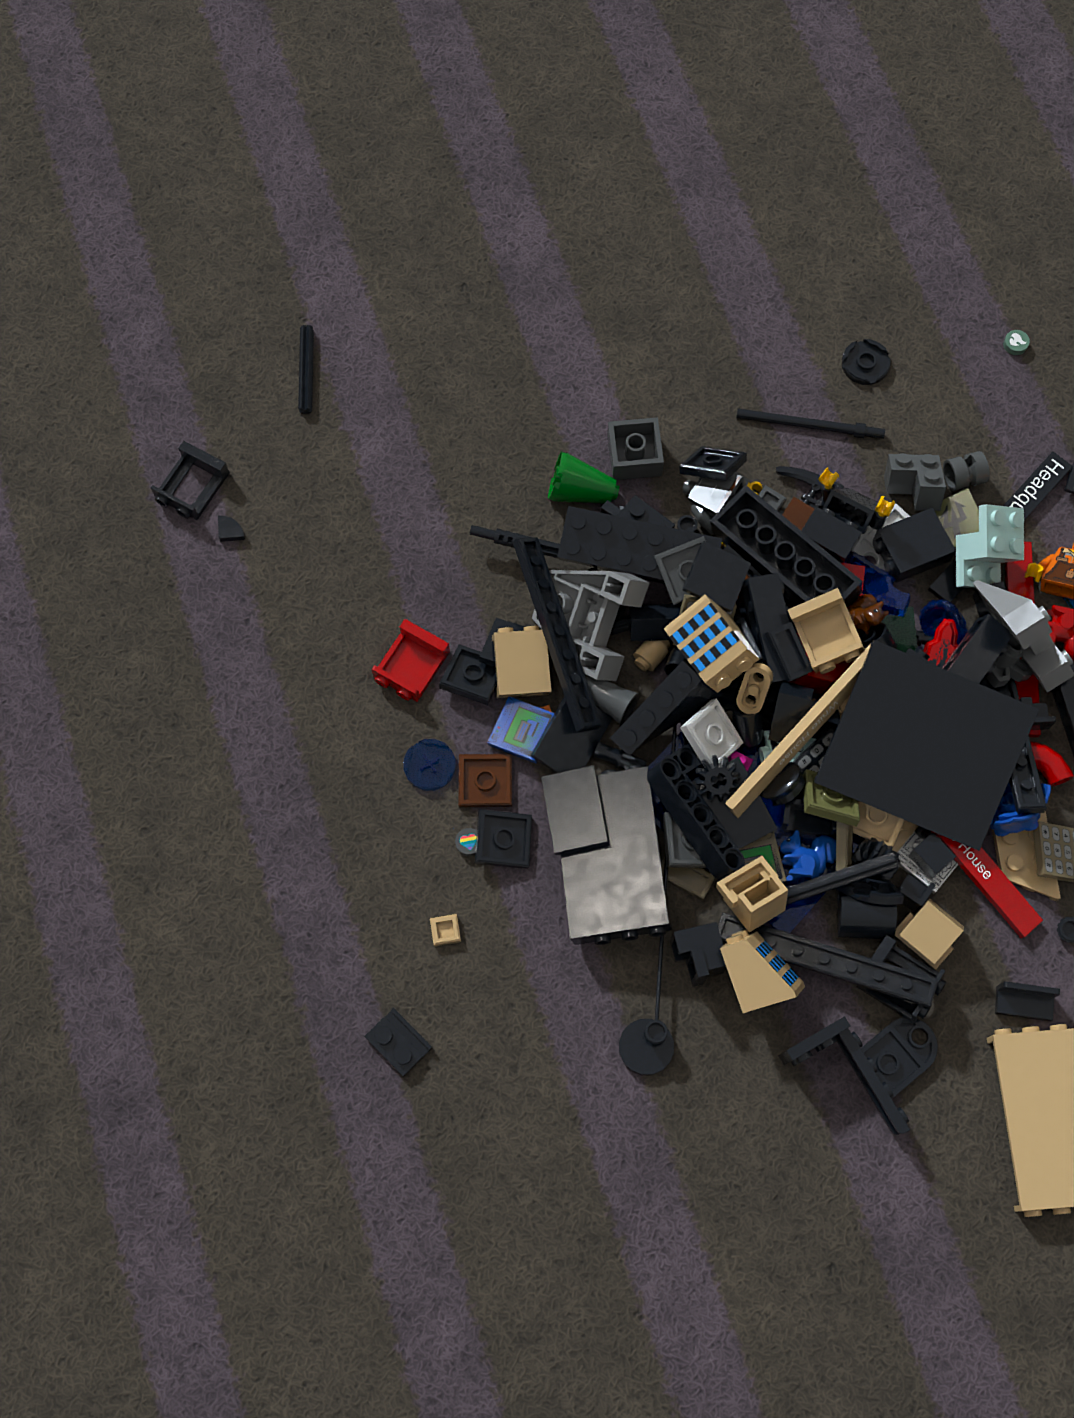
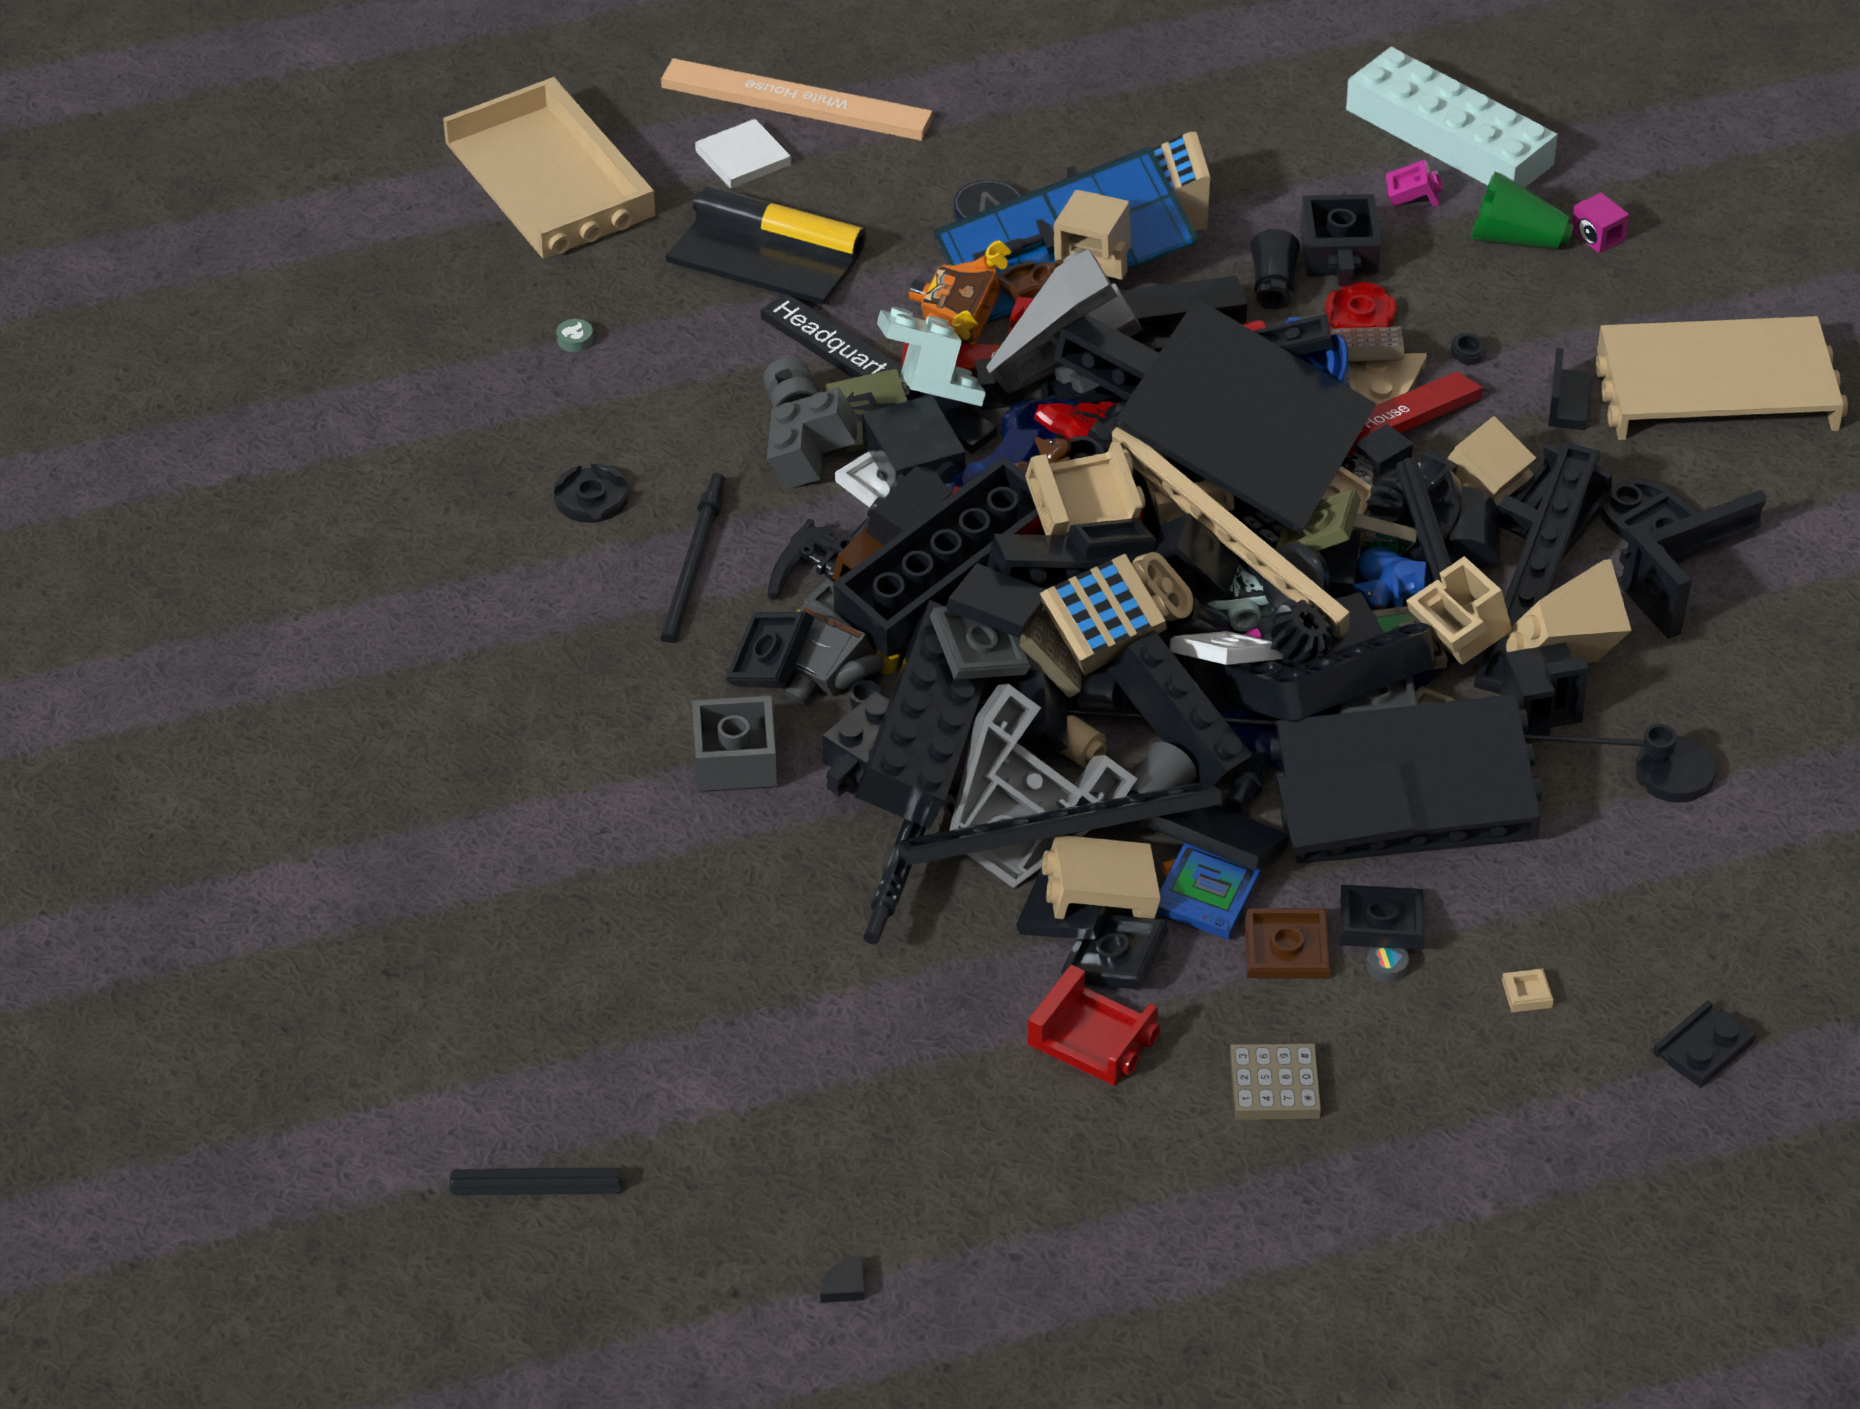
camera: 90 degrees left, 25 degrees down
(191, 456) = (730, 1298): black panel -> none
(371, 769) = (1274, 1081): none -> tile
(429, 764) = (1263, 1010): clear blue tile -> none
(580, 482) = (786, 817): green cone -> none
(852, 505) = (847, 504): black torso -> none

